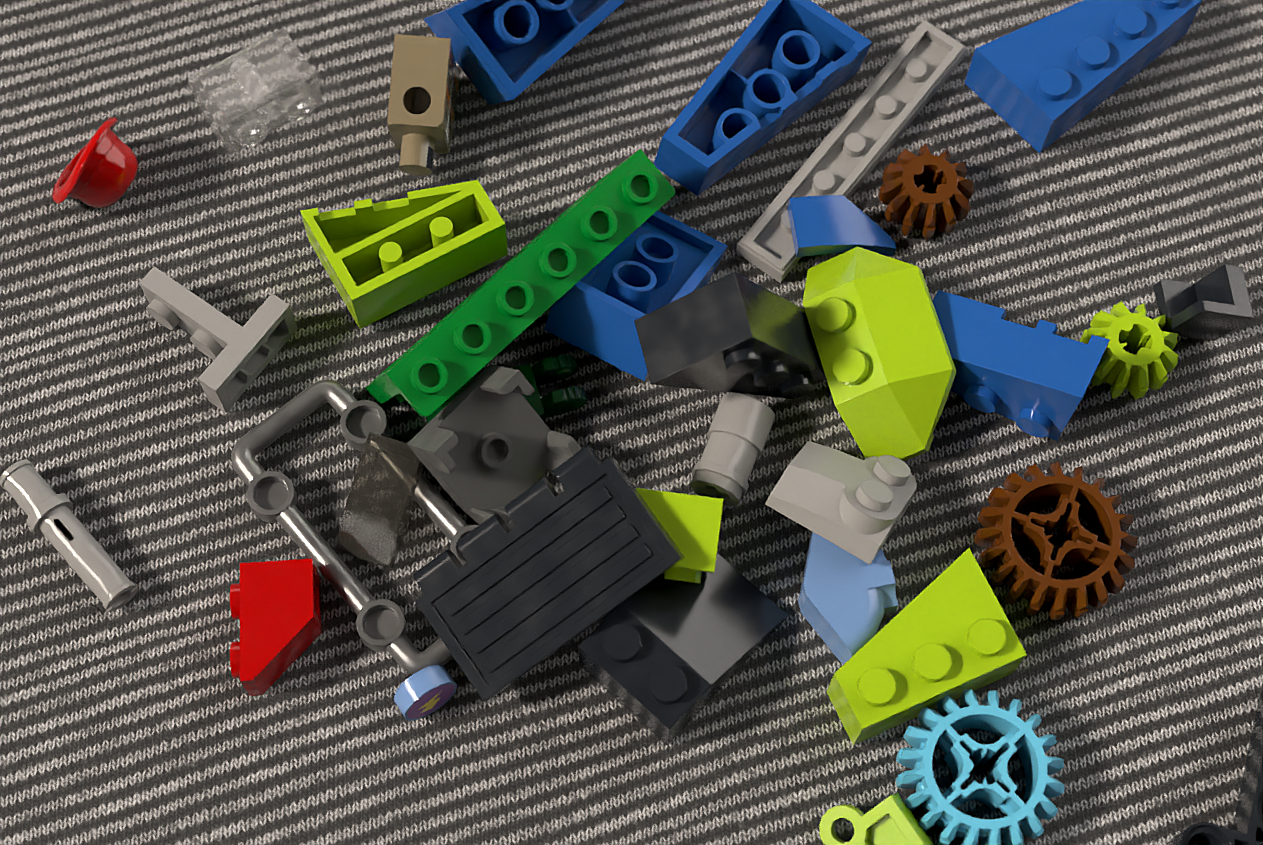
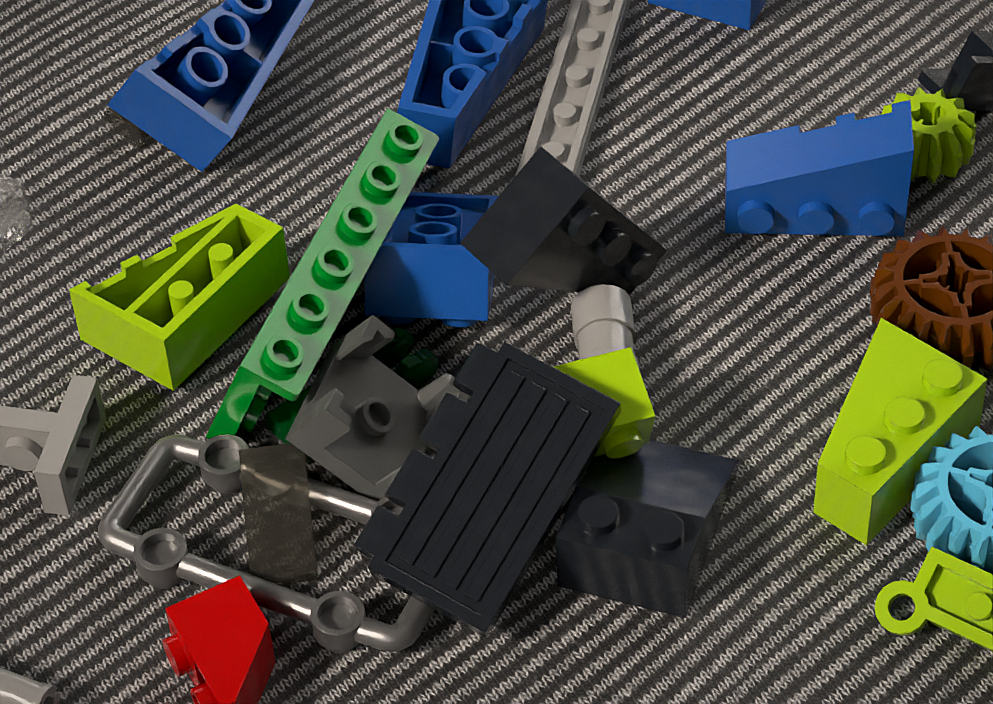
camera: 20 degrees left, 20 degrees down
(422, 100) = (145, 191): dark tan torso -> none
(425, 692) = (417, 657): medium blue tile -> none
(834, 226) = (595, 138): blue slope -> none
(845, 497) = (740, 327): light grey slope -> none
(845, 596) = (779, 412): medium blue piece -> none
(880, 350) = (707, 211): lime wedge -> none
(946, 188) = (666, 84): reddish brown gear -> none

